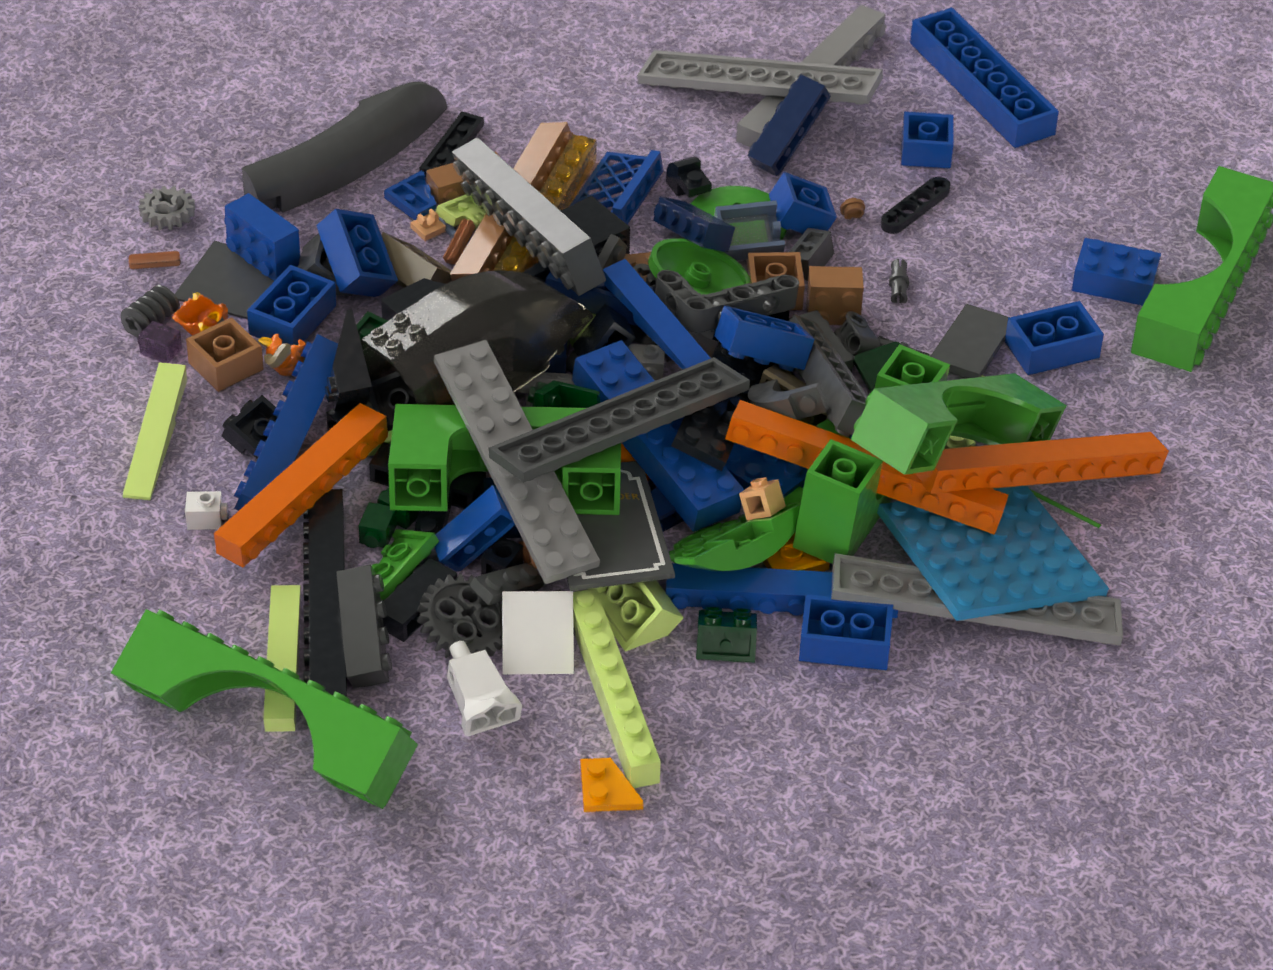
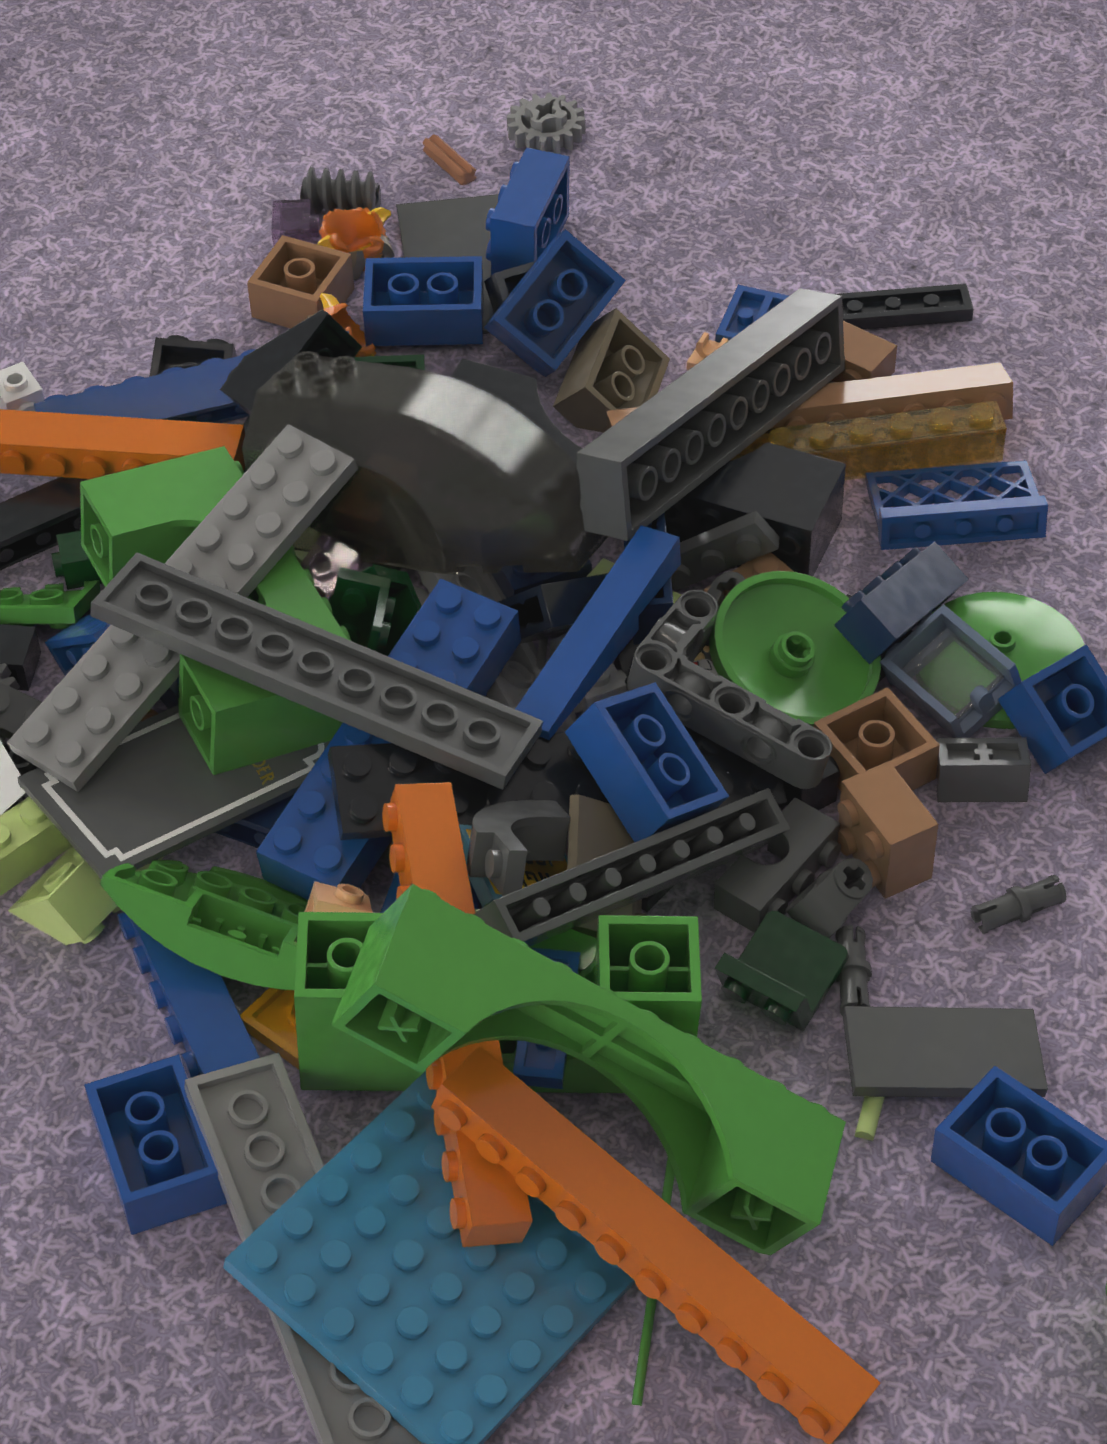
camera: 65 degrees right, 5 degrees up
(156, 430) = (137, 295): yellowish green slope -> none
(347, 149) = (786, 214): dark grey slope -> none
(687, 177) = (1023, 561): black brick -> none
(726, 635) = (91, 998): dark green bracket -> none

